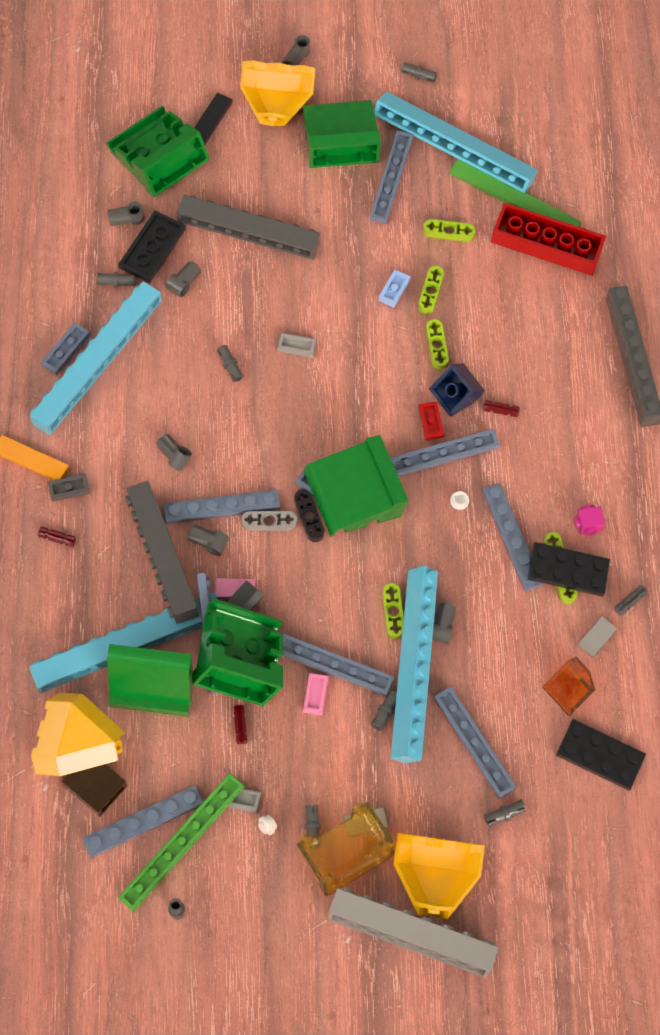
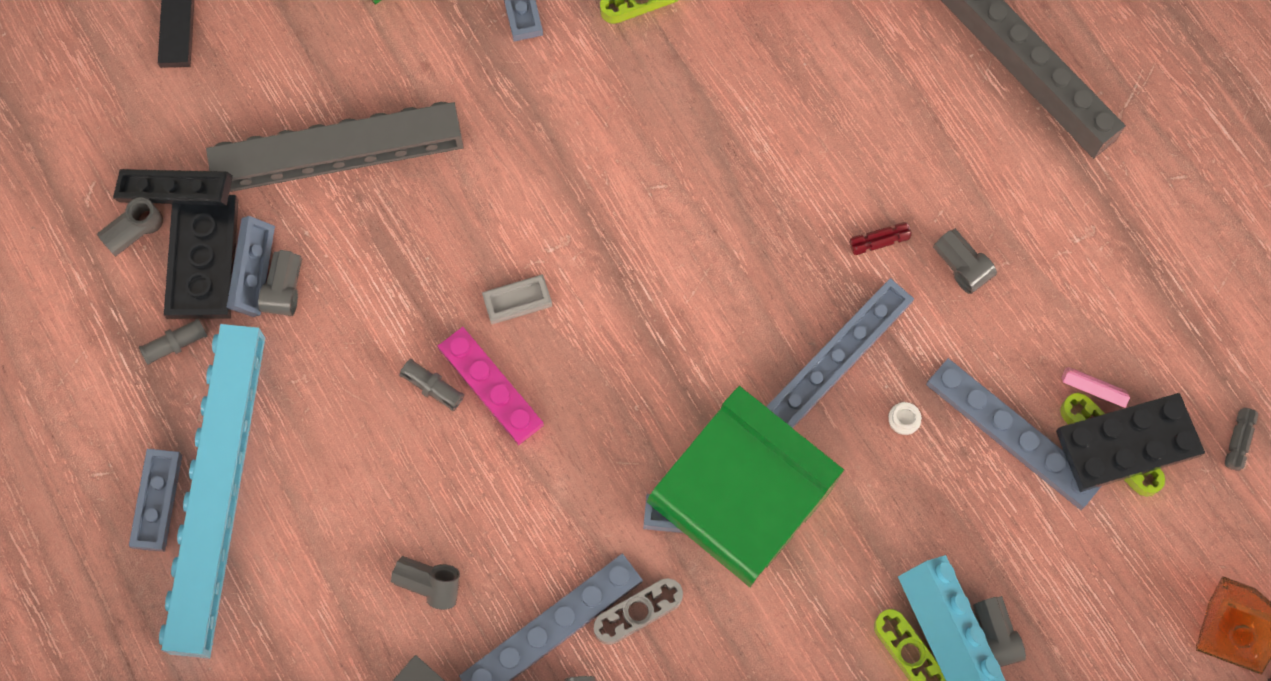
camera: 25 degrees left, 5 degrees up
(157, 205) = (174, 186): none -> black tile
(159, 150) = (125, 93): green panel -> none
(173, 262) = (250, 265): none -> sand blue plate
(259, 379) = (490, 386): none -> dark pink plate
(310, 507) = (718, 579): black beam -> none
(394, 288) = (614, 132): light blue plate -> none
(429, 283) = (674, 93): lime beam -> none
(431, 420) = (790, 314): red plate -> none
(438, 337) = (721, 164): lime beam -> none
(456, 389) = (799, 243): dark blue slope -> none
(538, 445) = (969, 268): none -> dark grey piece
(568, 534) = (1095, 386): none -> bright pink tile
(589, 520) = (1111, 346): dark pink brick -> none
(597, 637) = (1228, 525): light grey tile -> none

